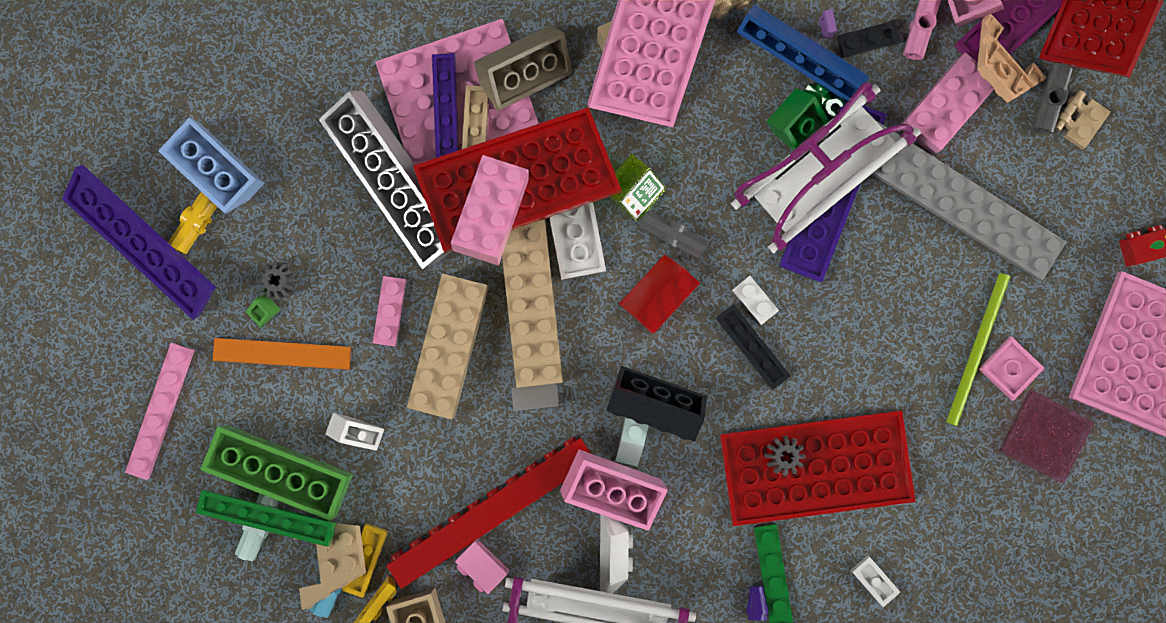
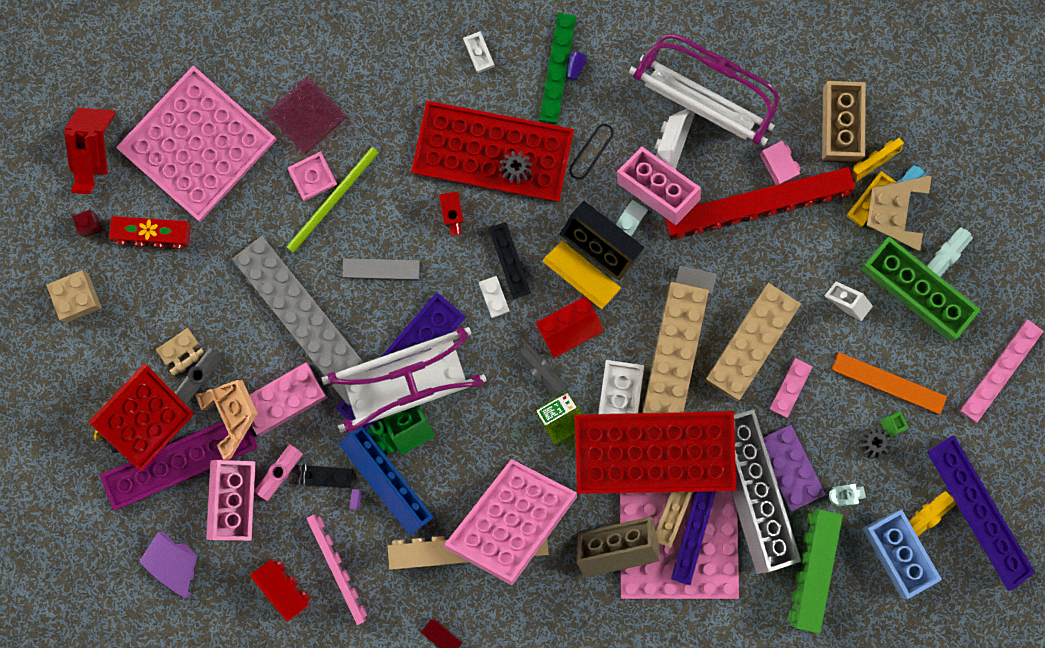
camera: 165 degrees left, 5 degrees down
(266, 518) = (939, 255): green plate -> none
(290, 209) = (846, 495): none -> light aqua hips
(300, 115) = (815, 570): none -> bright green brick
(361, 222) = (792, 469): none -> medium lavender plate
(490, 210) = (686, 429): bright pink brick -> none
(666, 357) = (581, 274): none -> yellow tile
(711, 511) = (612, 133): none -> black piece
(840, 389) = (451, 202): none -> red torso
(893, 288) = (381, 269): none -> light grey tile

